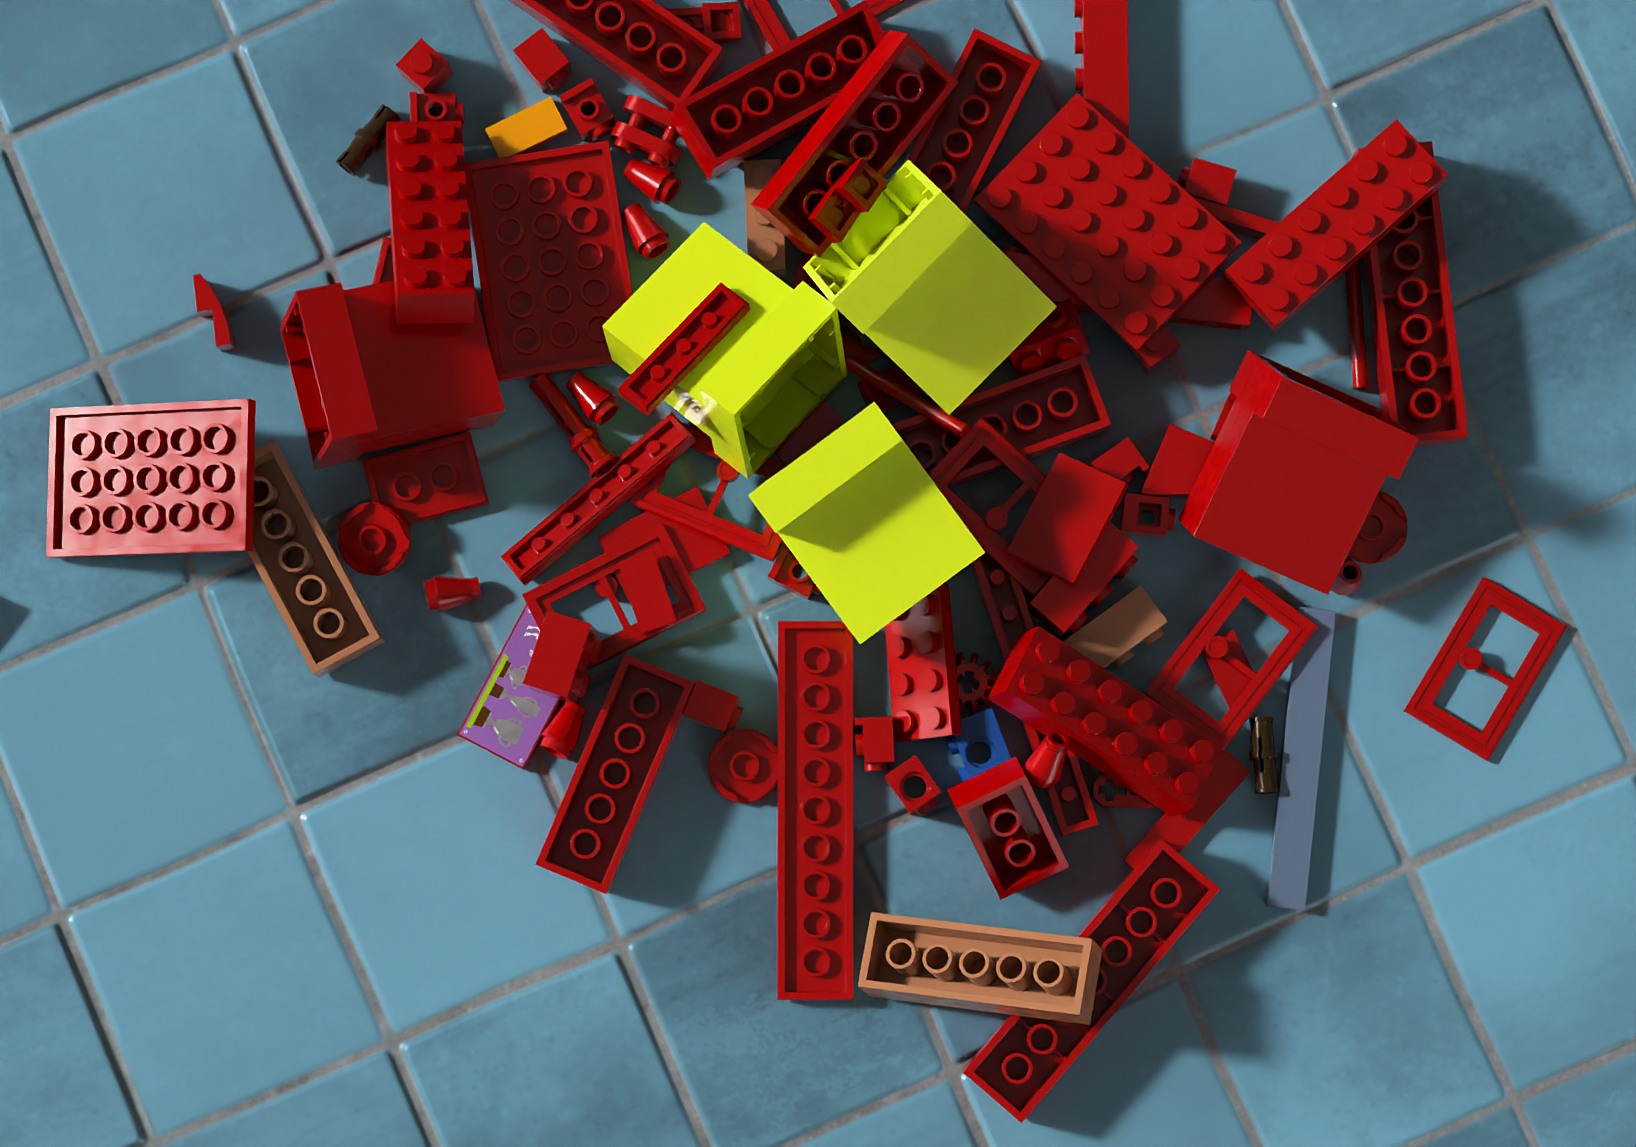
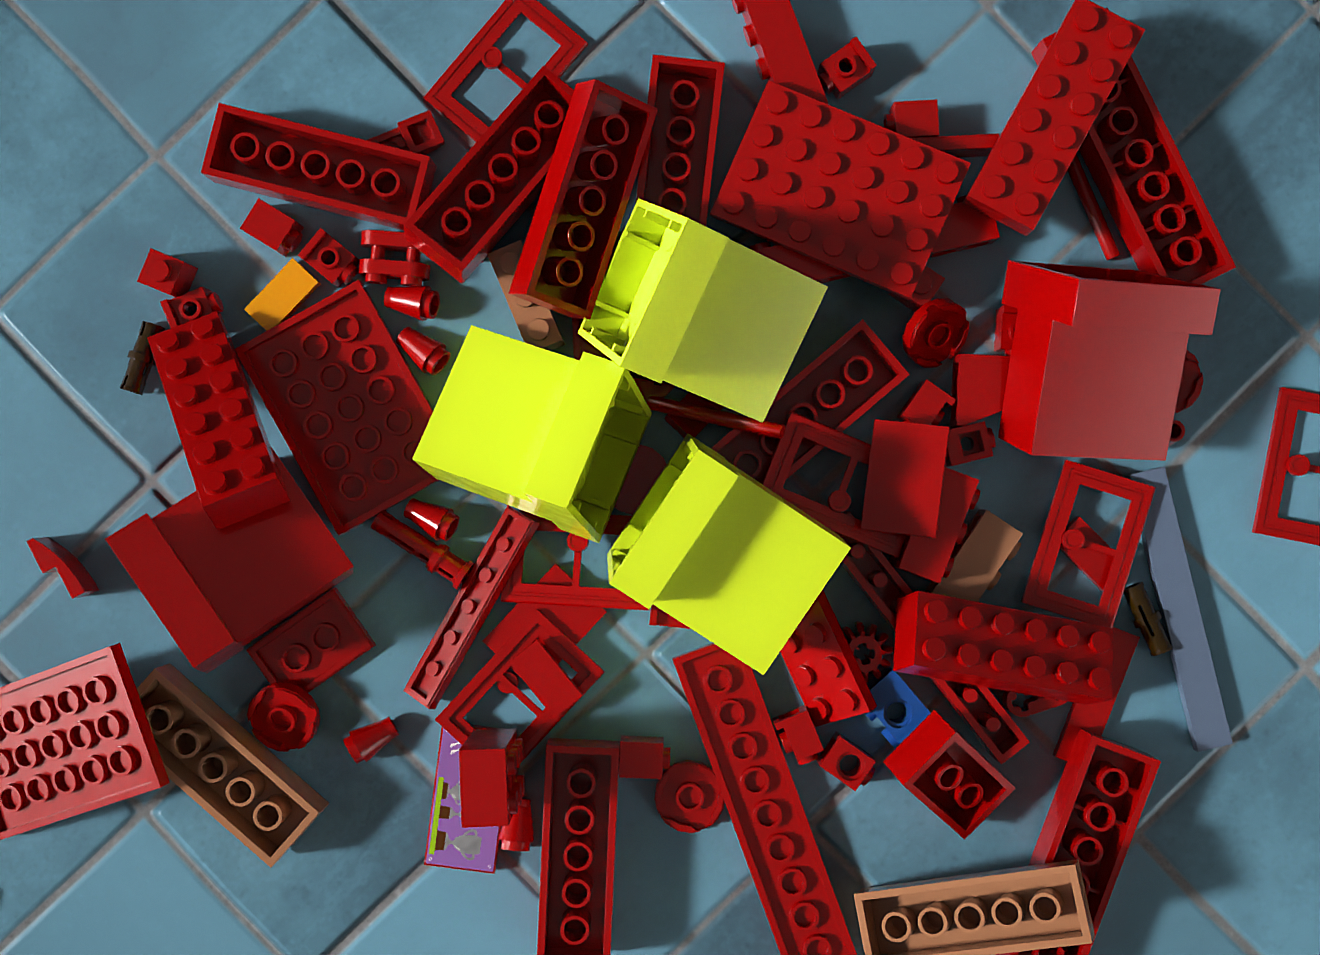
camera: 20 degrees left, 5 degrees up
(684, 349) = (495, 455): red tile -> none
(846, 199) = (594, 258): red slope -> none
(1047, 761) = (967, 708): red cone -> none
(1053, 341) = (831, 319): red brick -> none
(1152, 121) = (842, 82): none -> red brick
(1154, 395) = (935, 332): none -> red tile

